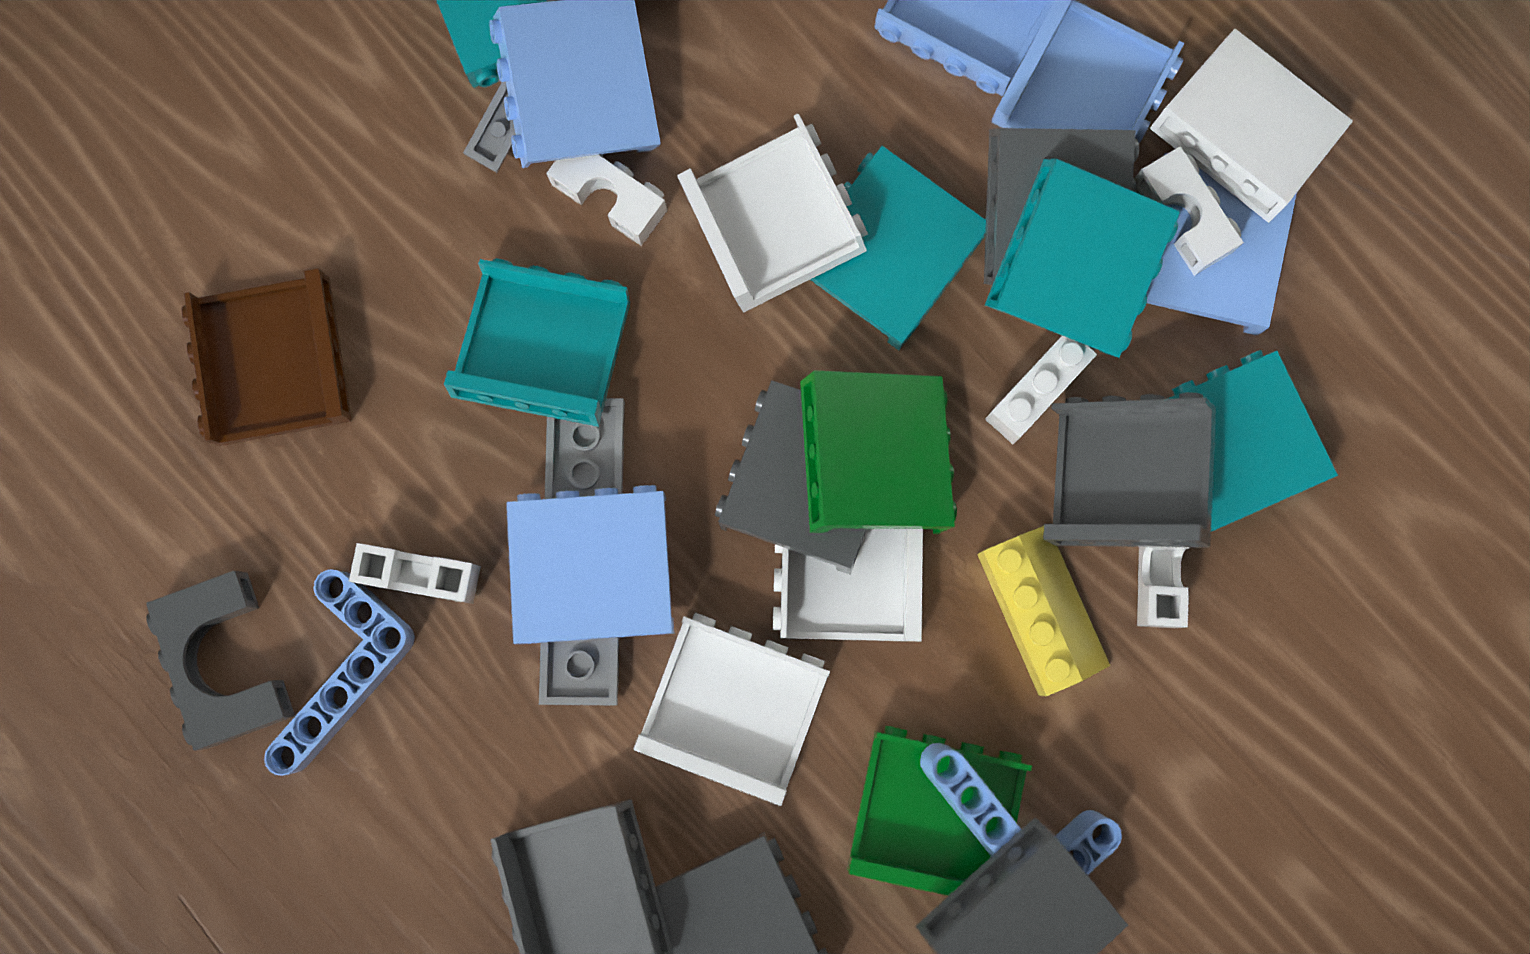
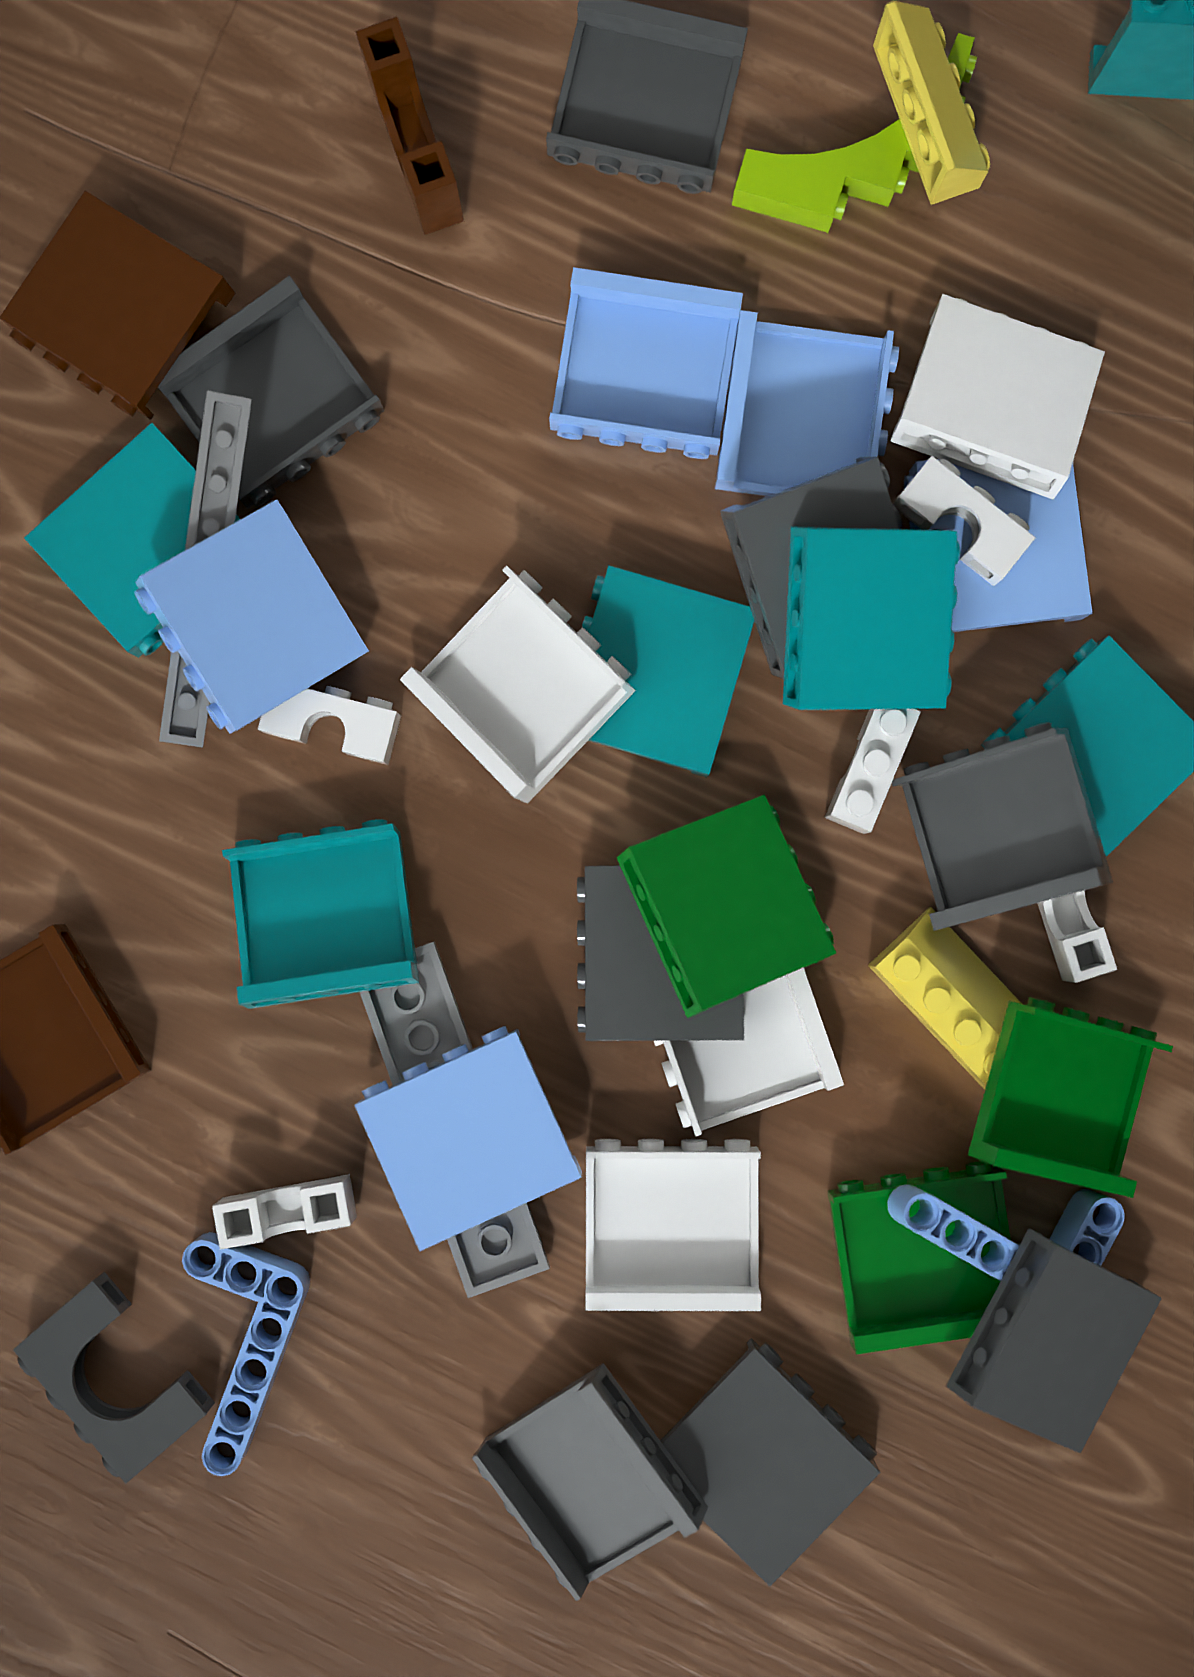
camera: 20 degrees left, 5 degrees up
(1105, 717) = (1063, 1096): none -> green panel

